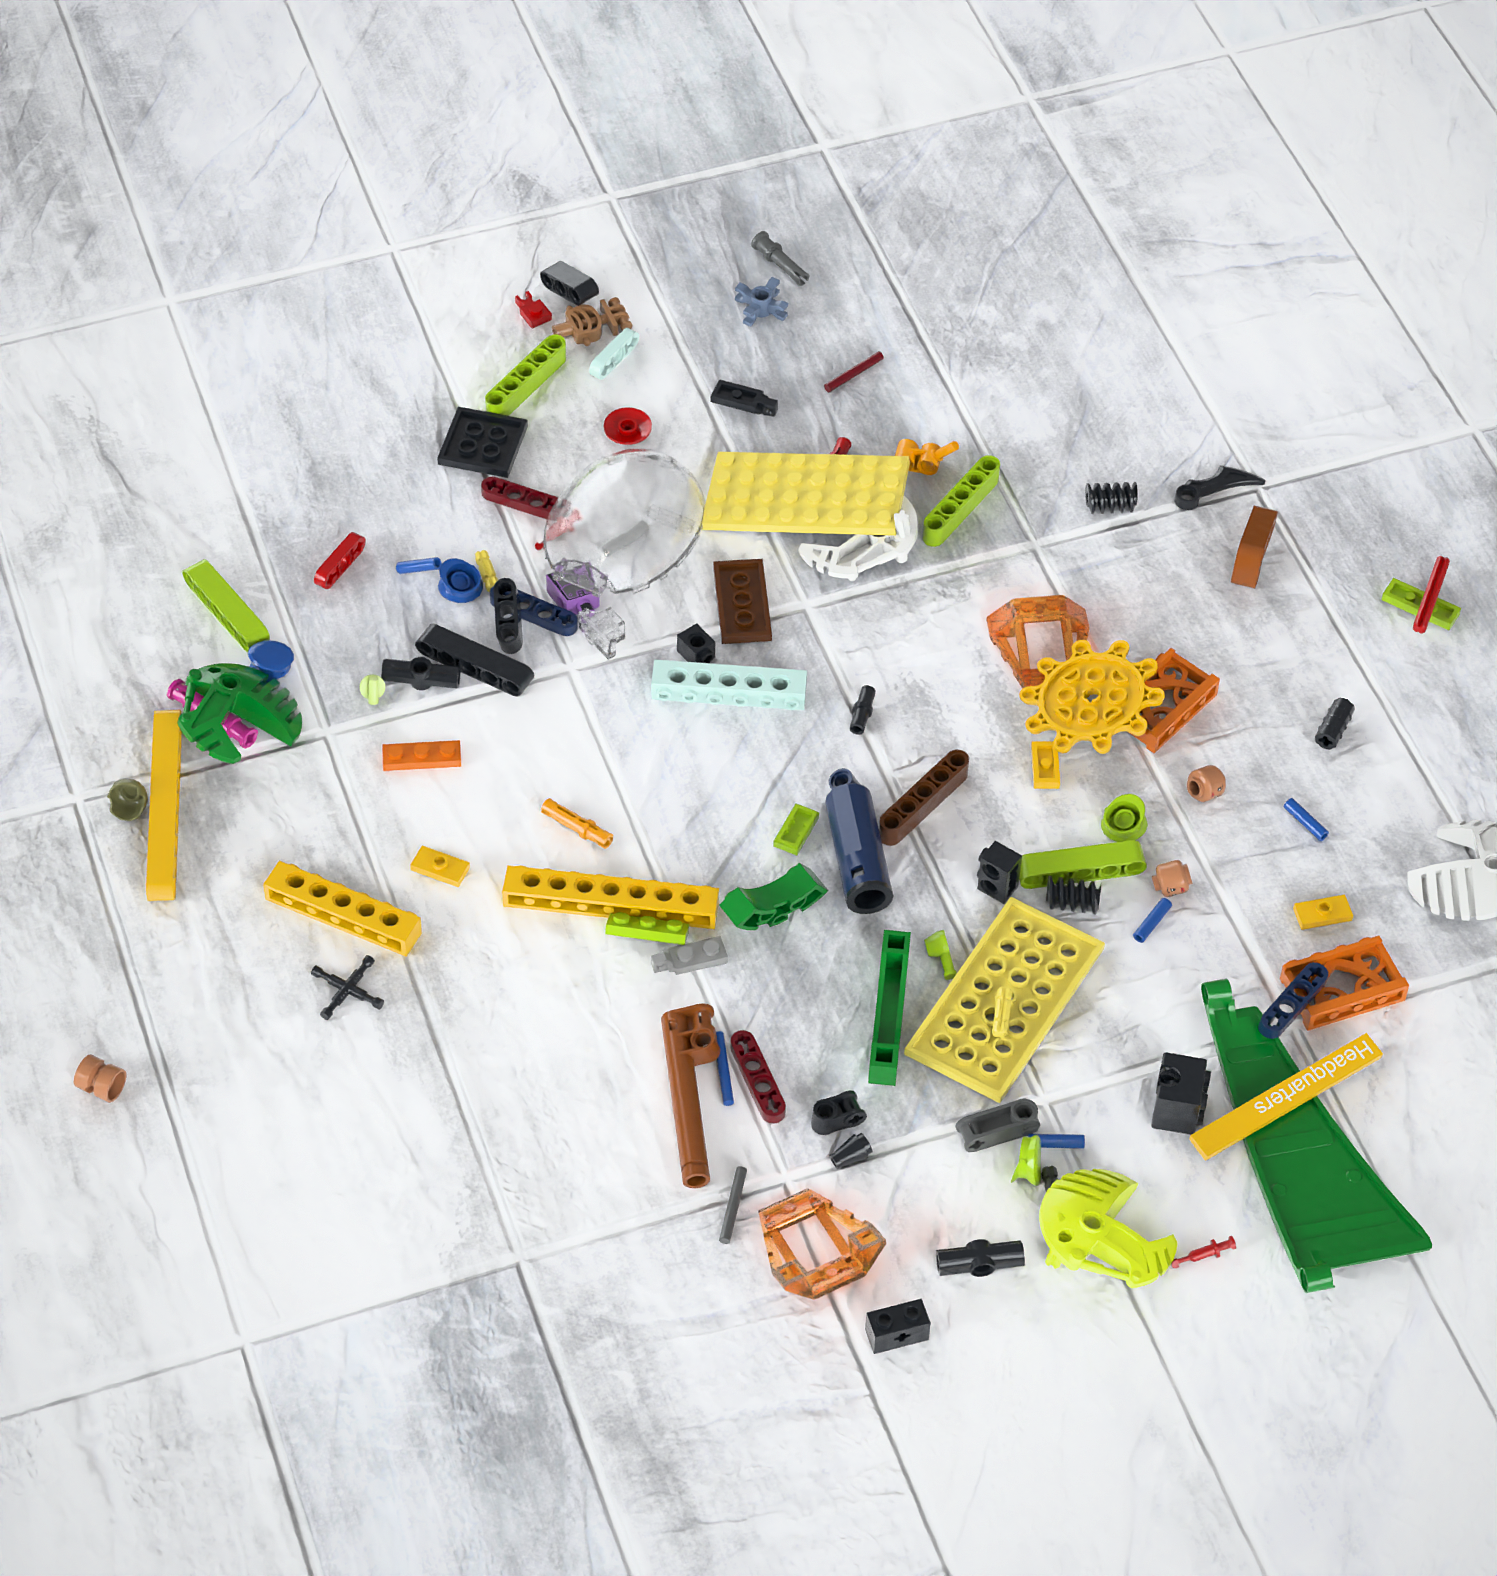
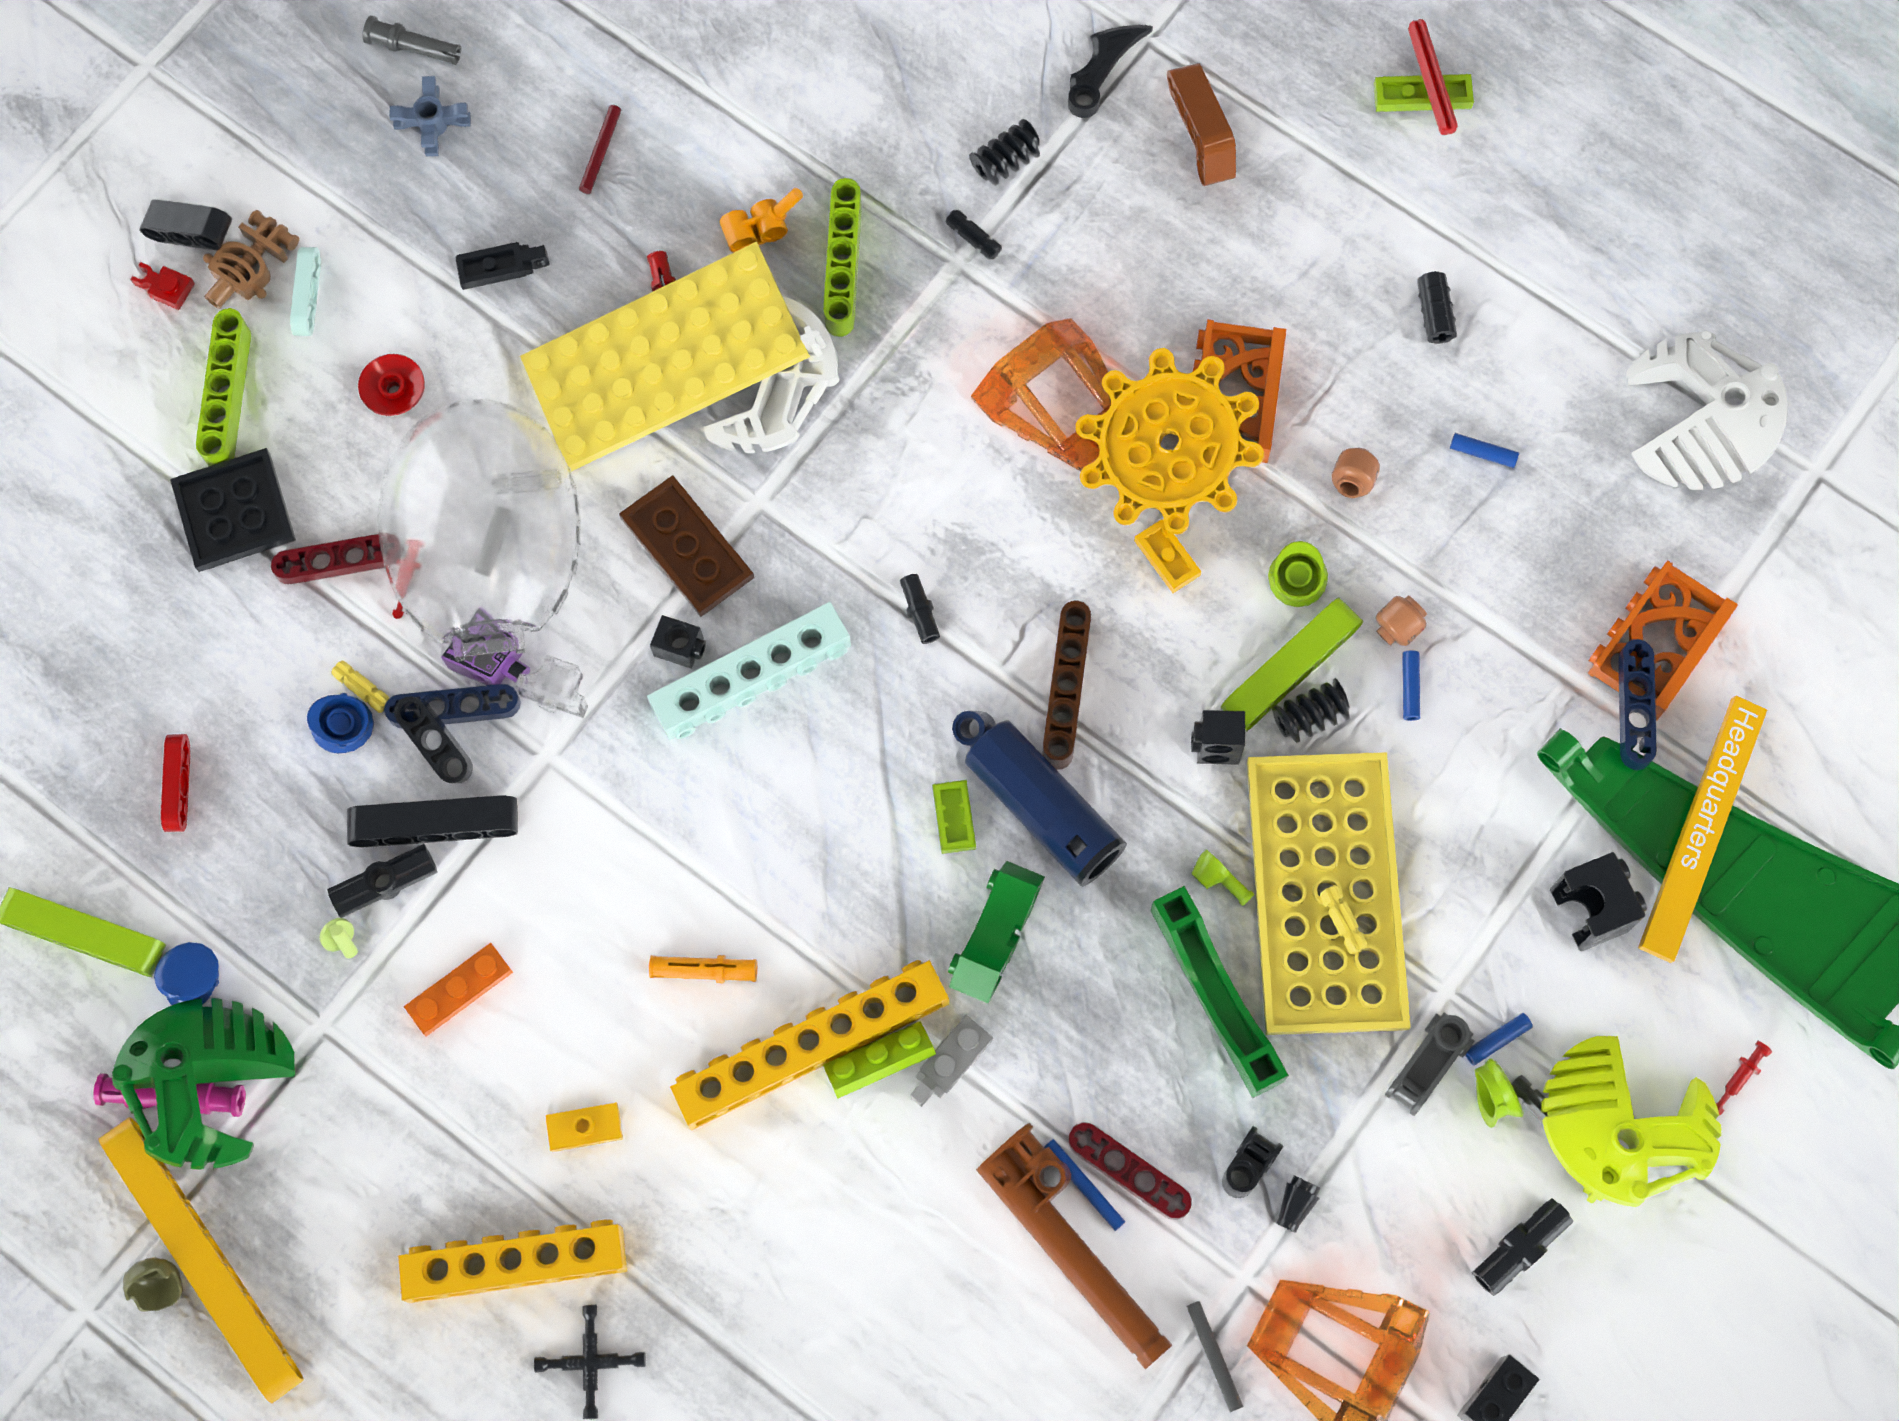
camera: 30 degrees left, 20 degrees up
(418, 565) = (278, 734): piece -> none
(1056, 532) = (973, 234): none -> black axle
(1323, 912) = (1578, 559): yellow plate -> none

